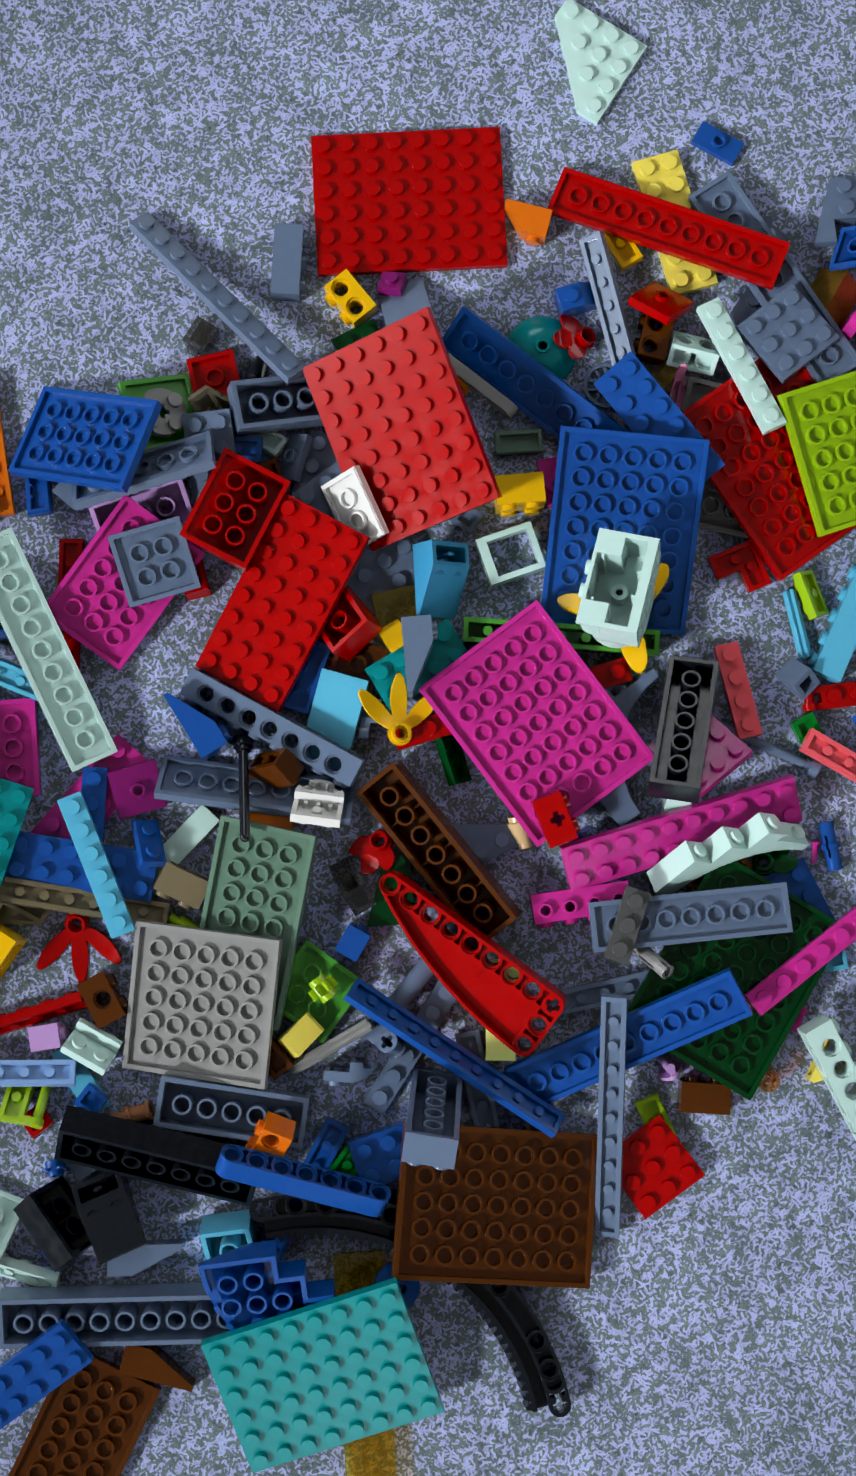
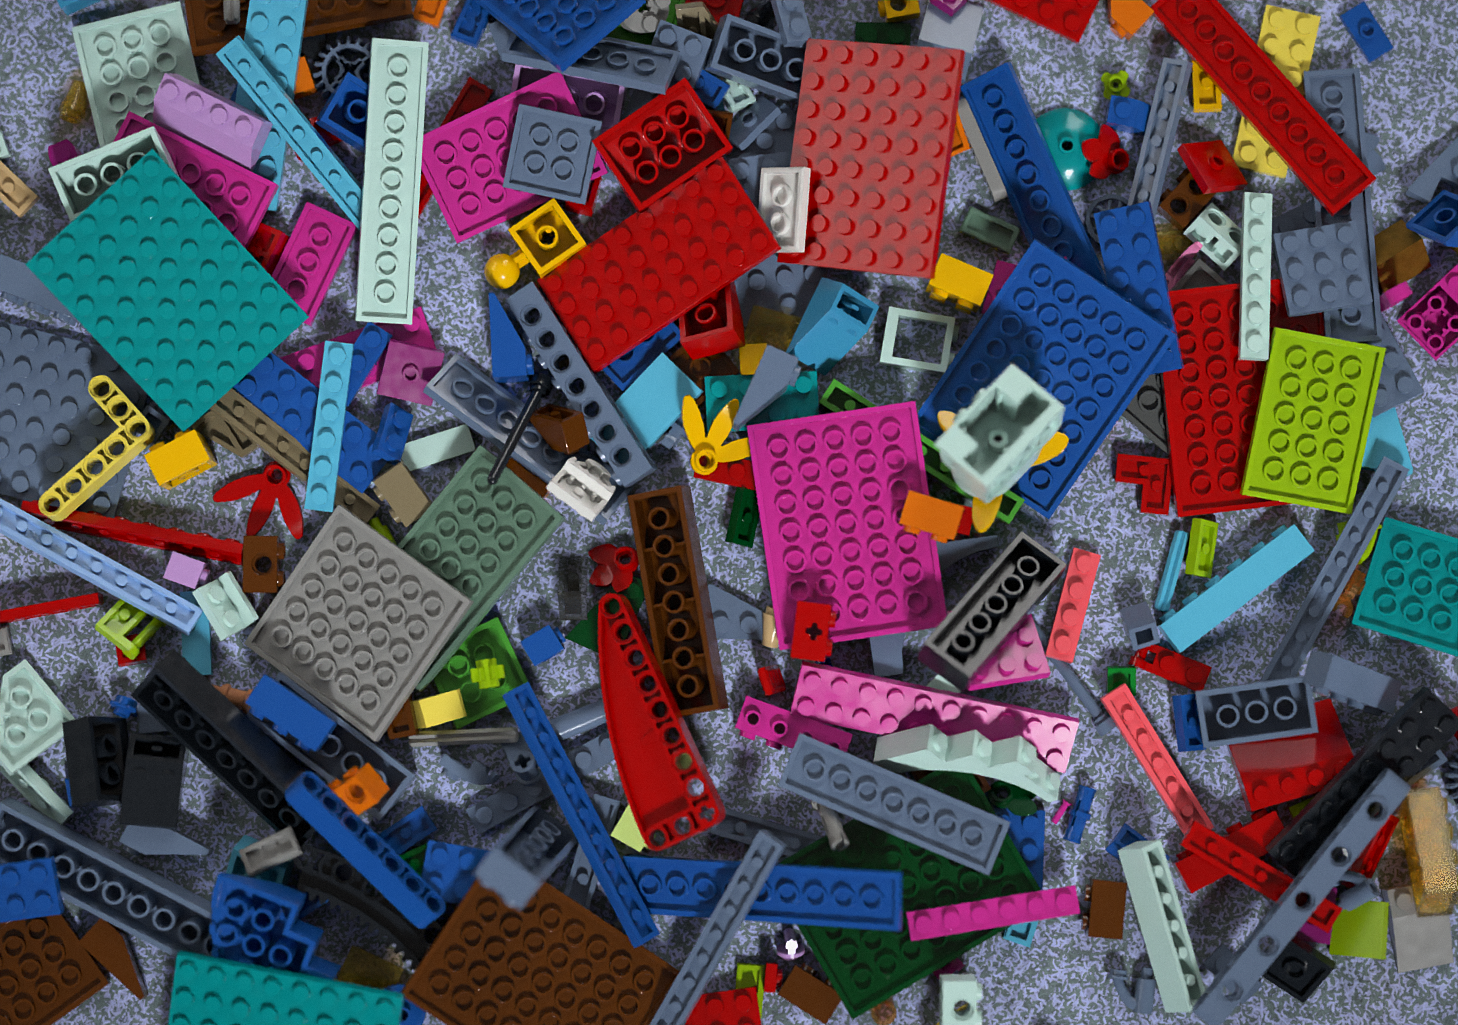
camera: 30 degrees right, 0 degrees up
(91, 1098) = (198, 656): blue plate -> none
(180, 613) = (504, 269): none -> yellow brick
(187, 1105) = (290, 714): none -> blue brick
(230, 1221) = (270, 852): none -> light grey plate
(468, 521) = (893, 284): sand blue plate -> none
(542, 873) = (771, 679): none -> red slope
(545, 281) = (1120, 78): none -> lime plate
(598, 680) = (931, 516): none -> orange brick
(626, 925) = (825, 776): dark grey plate -> none
(668, 1100) = (773, 977): none -> red plate

